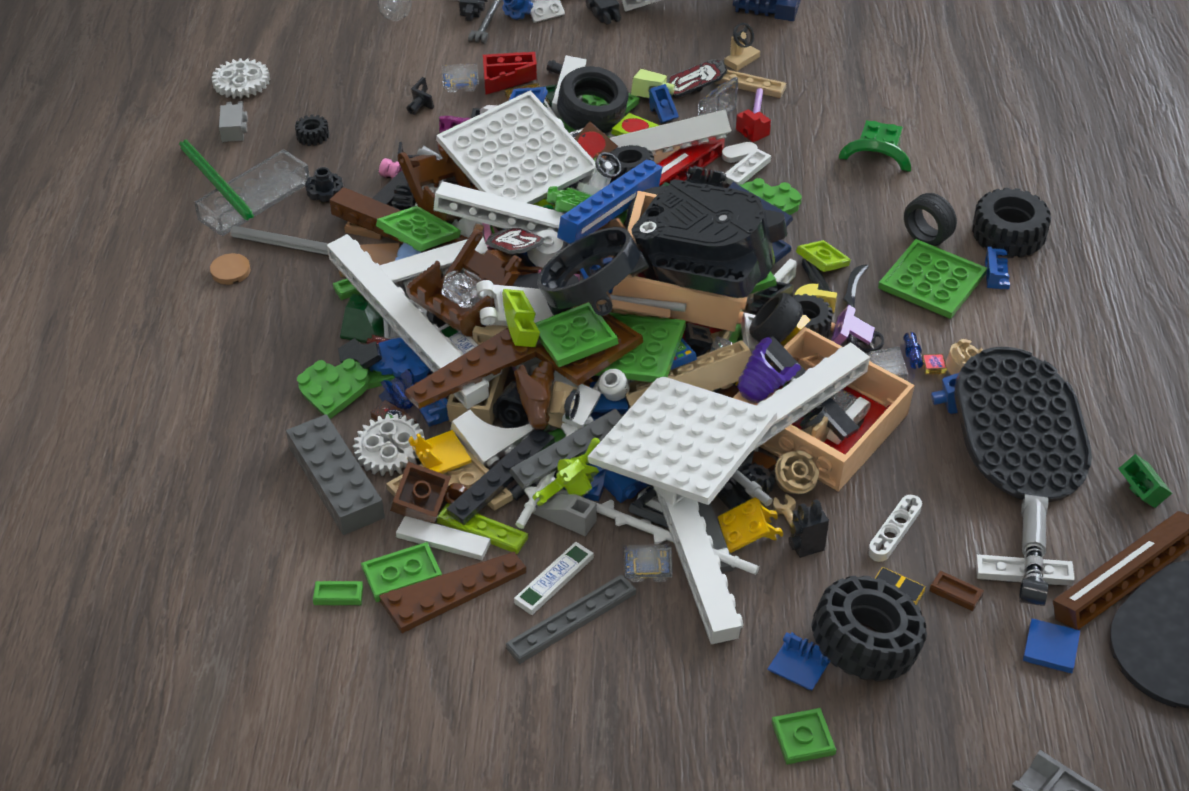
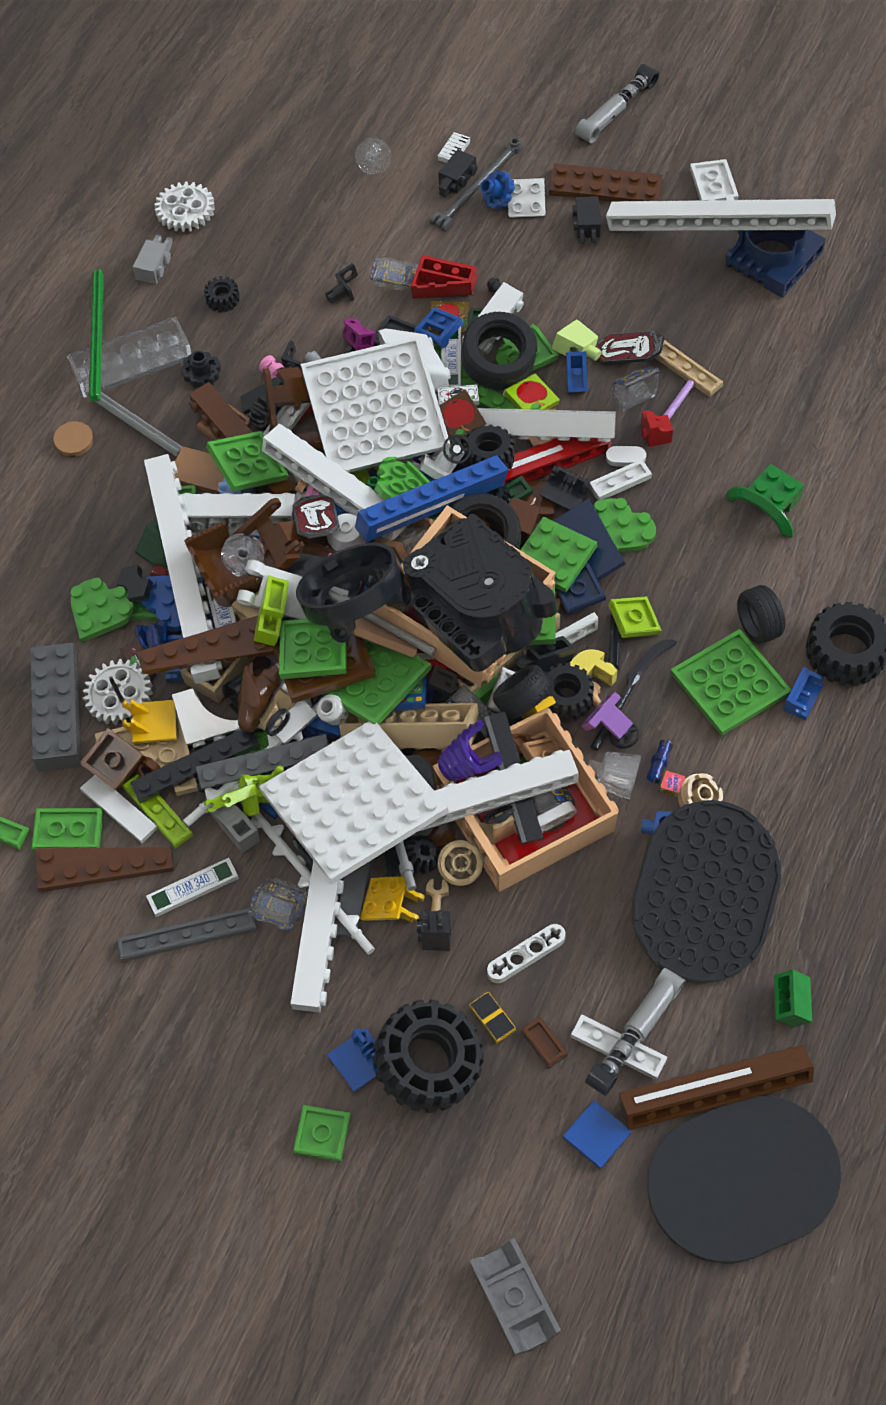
camera: 25 degrees right, 15 degrees up
(741, 52) = (696, 326): tan piece -> none

